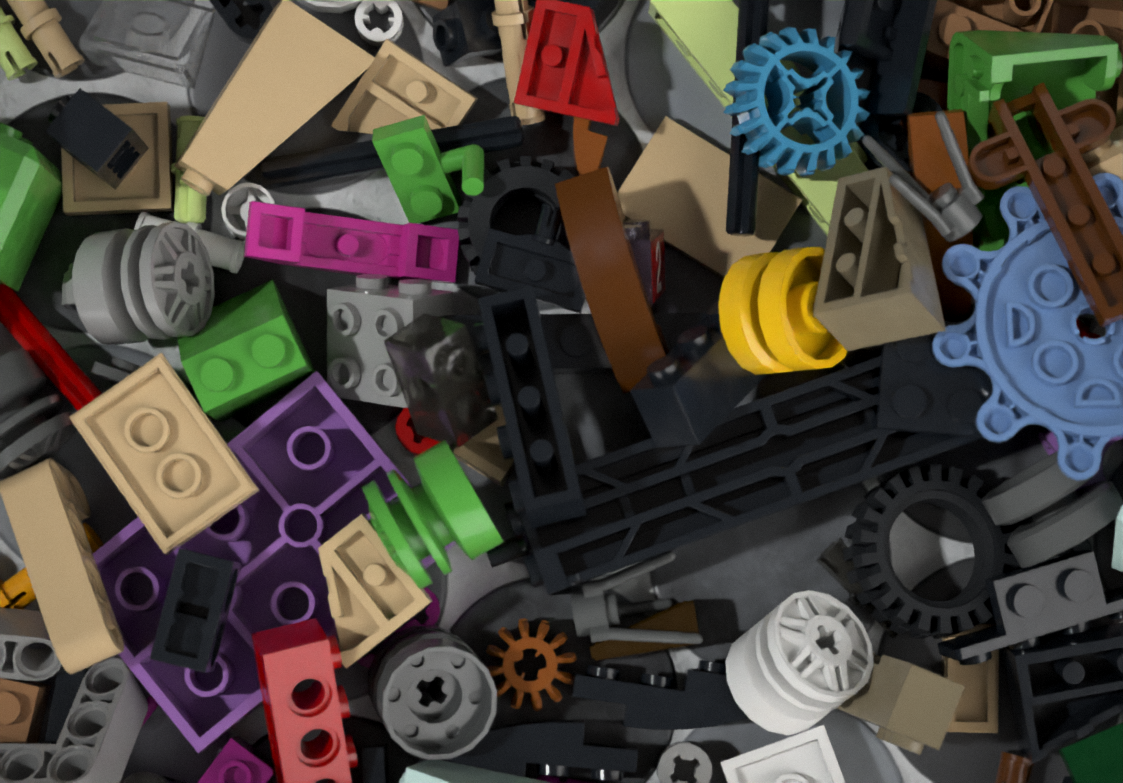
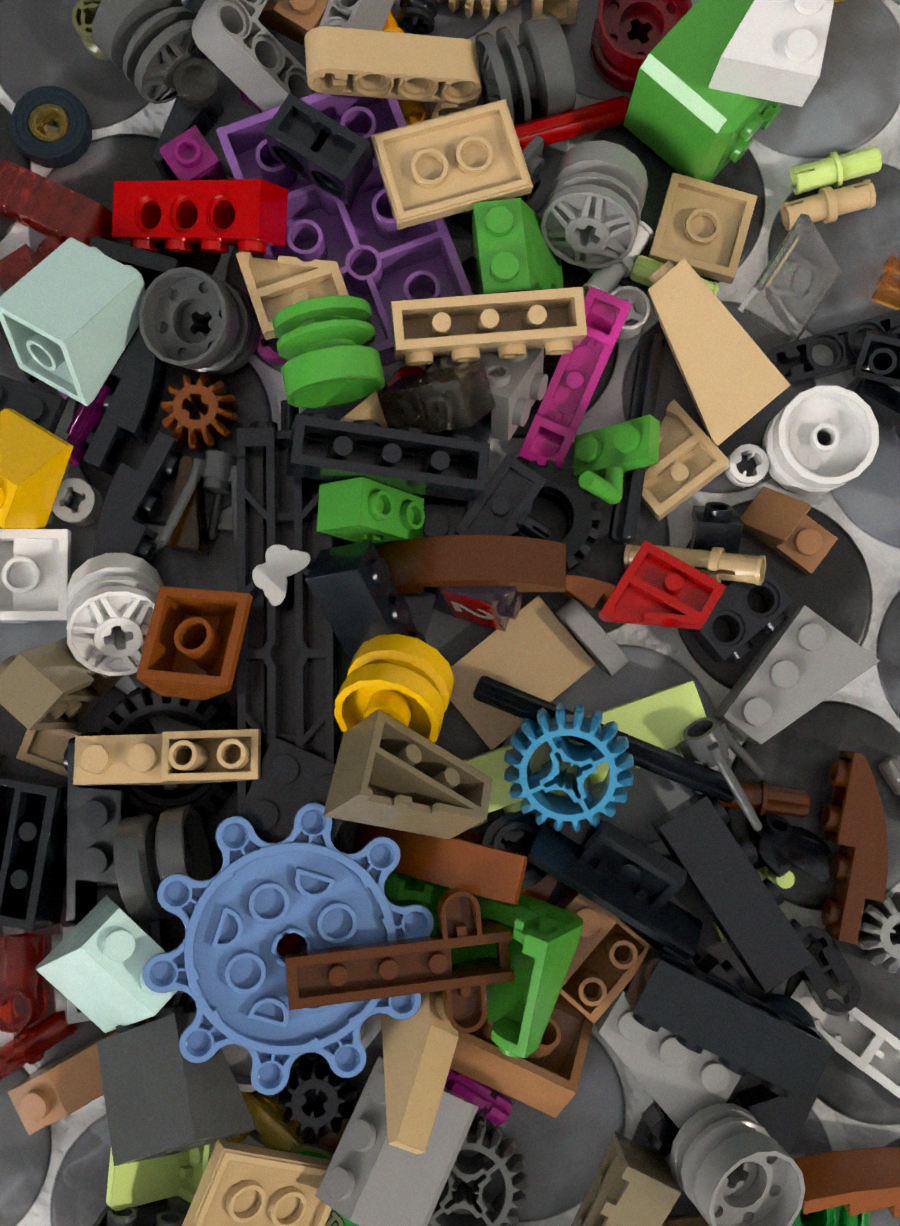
camera: 110 degrees right, 0 degrees up
(95, 137) = (723, 199): black brick -> none
(336, 351) = (488, 324): none -> tan brick
(593, 410) = (369, 511): none -> bright green brick
(637, 130) = (591, 637): none -> light grey beam
(686, 490) = (273, 574): none -> white sticker
(805, 545) = (193, 642): none -> dark orange slope
(939, 537) = (168, 758): none -> tan slope
(947, 208) = (434, 859): dark grey plant -> none

